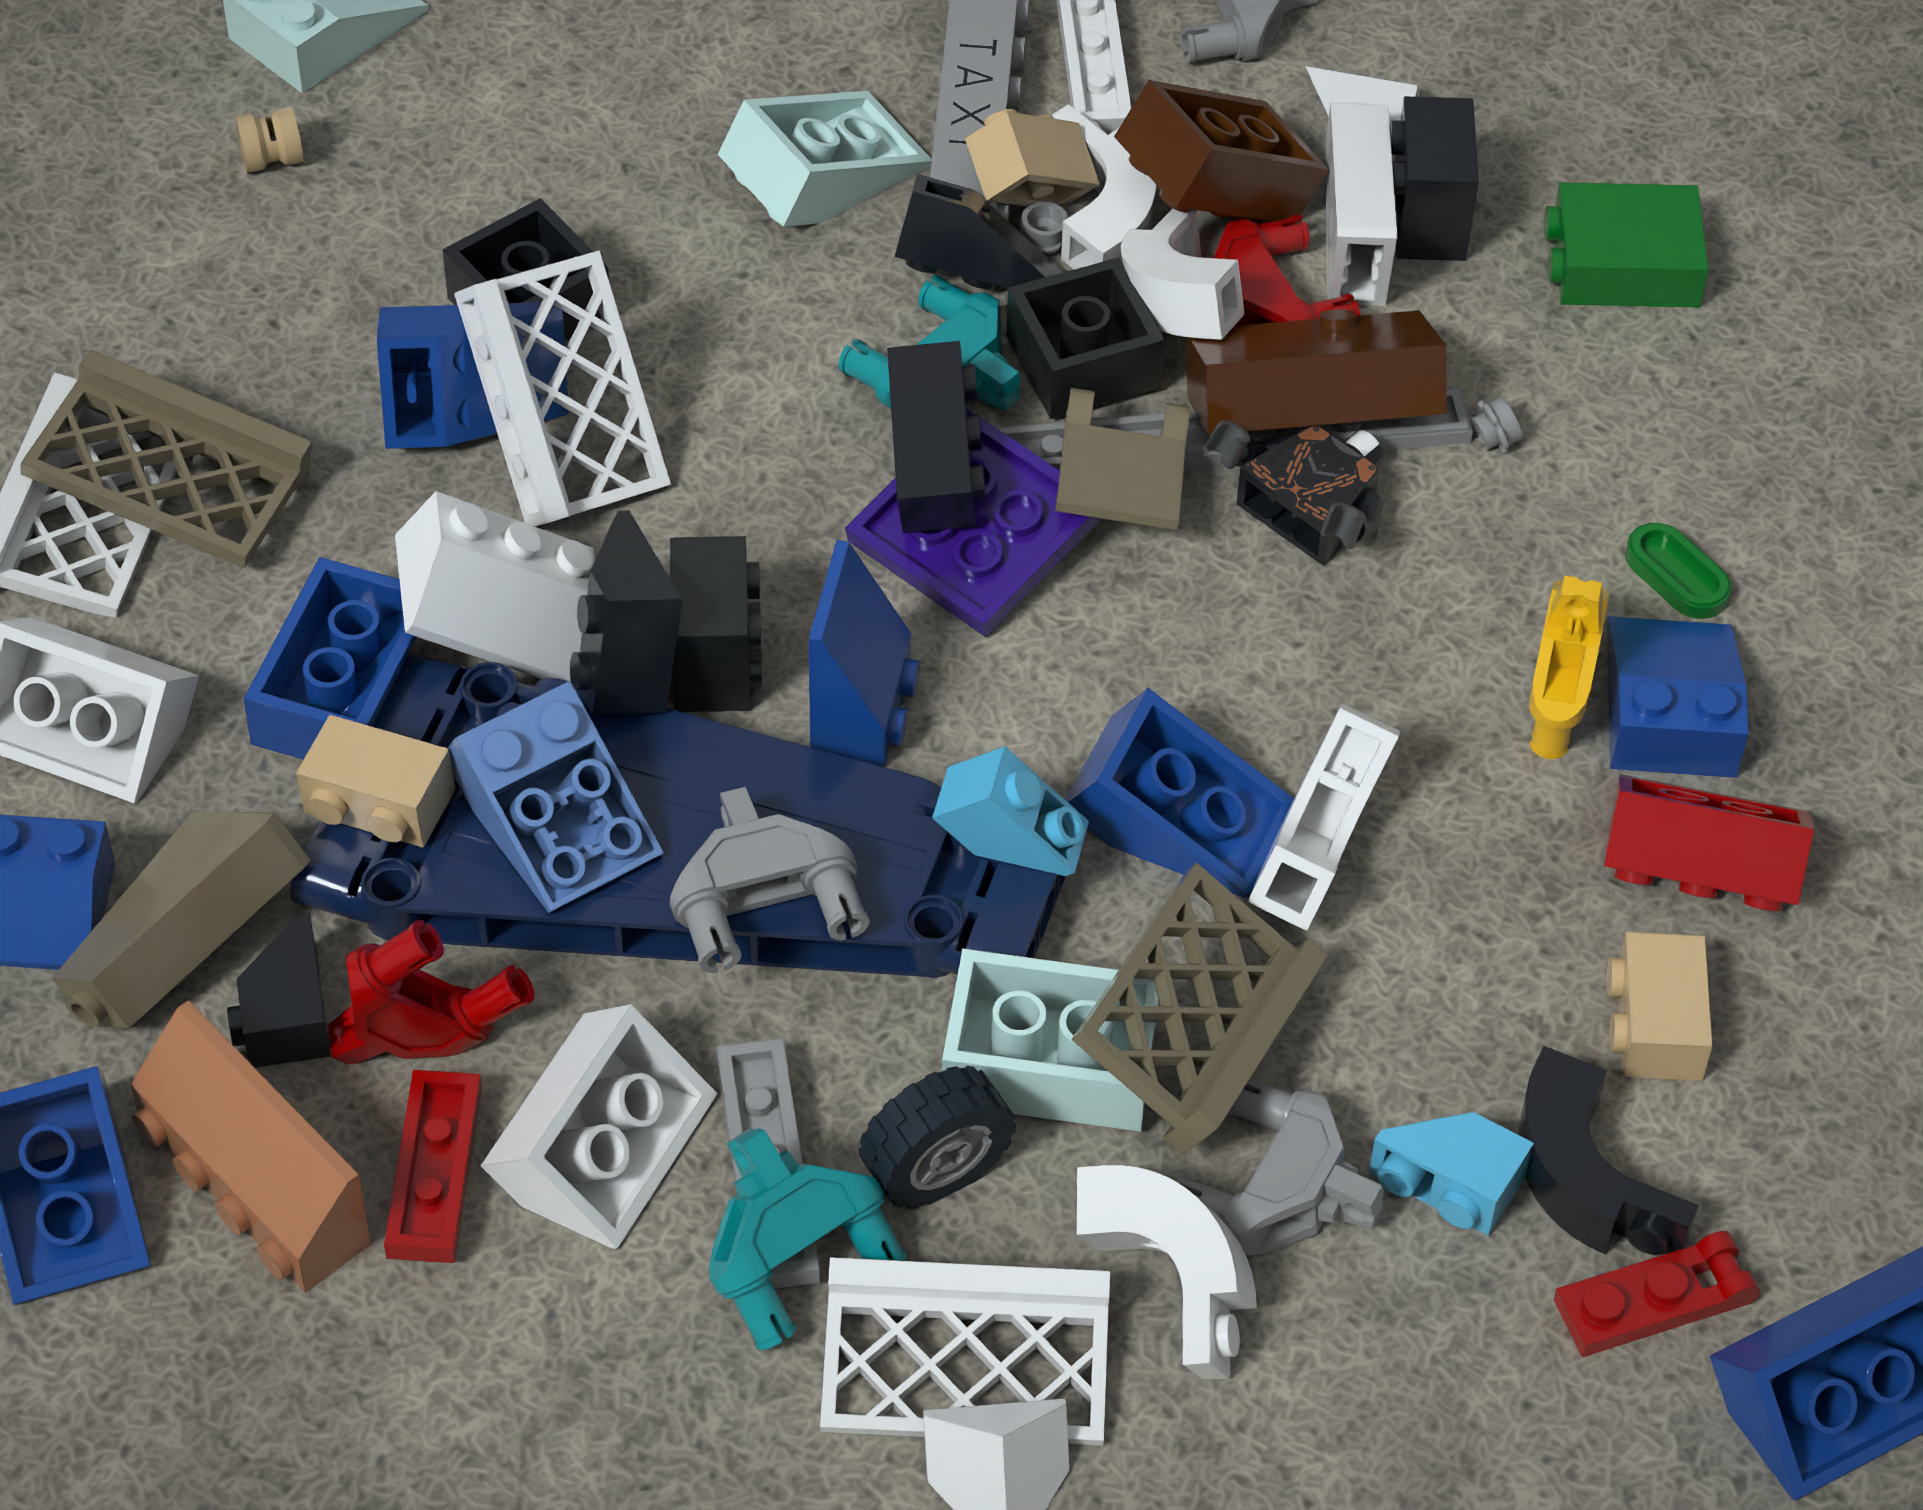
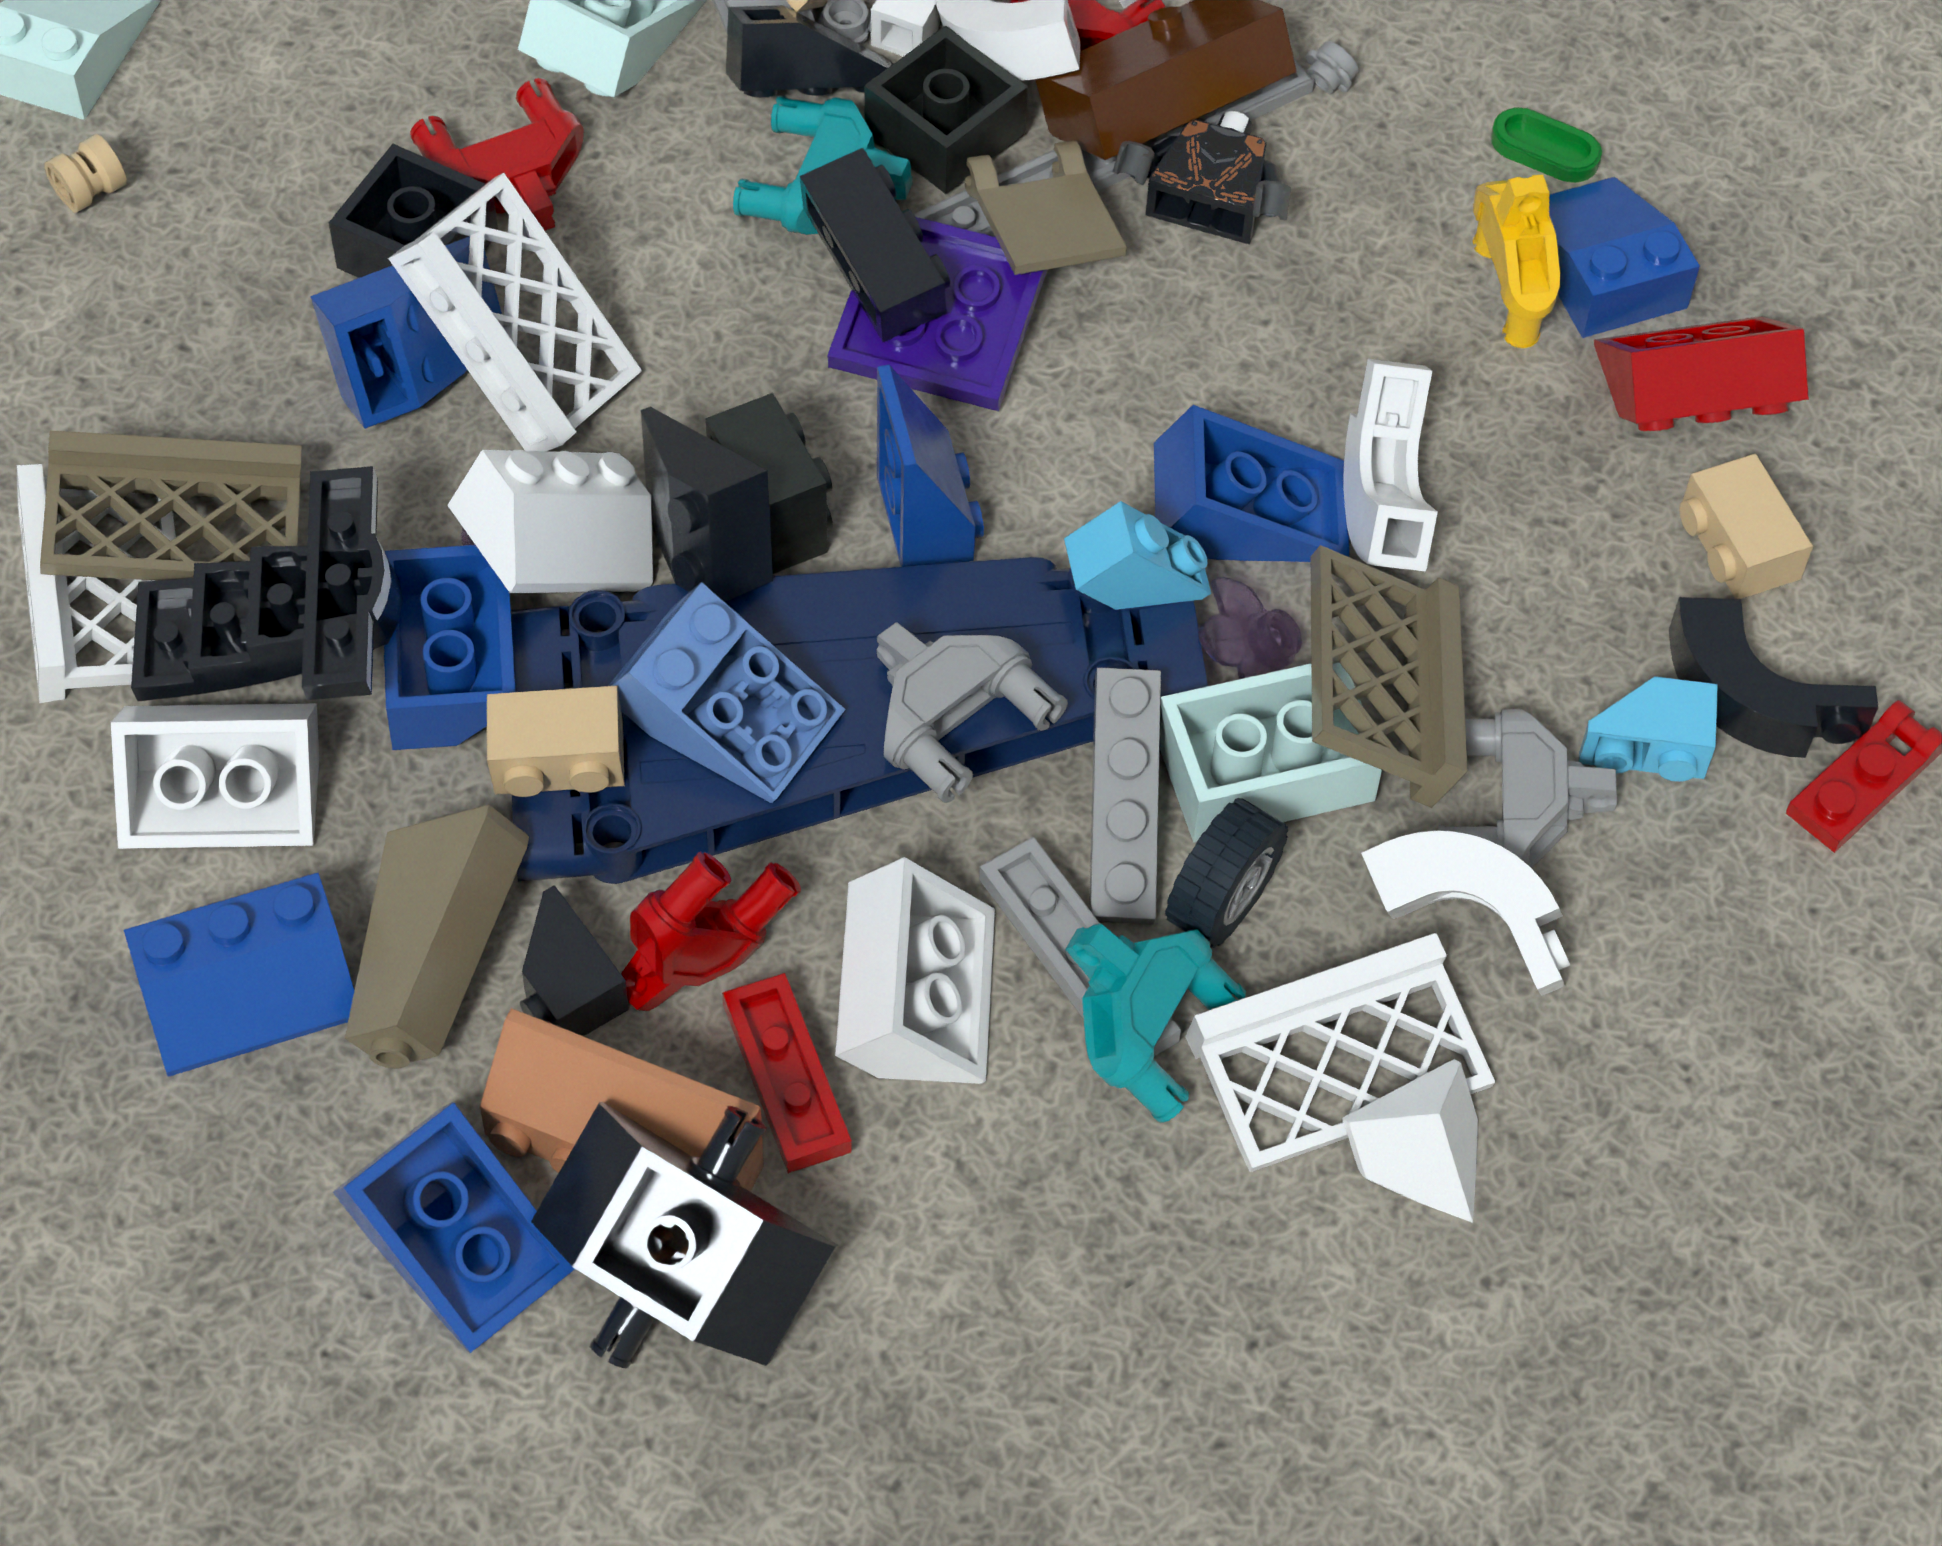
camera: 25 degrees left, 5 degrees up
(205, 580) = (281, 612): none -> black slope
(236, 1273) = (744, 1257): none -> black slope
(660, 259) = (530, 156): none -> red connector
(888, 1028) = (1125, 795): none -> light grey plate
(1093, 919) = (1246, 633): none -> clear purple plate

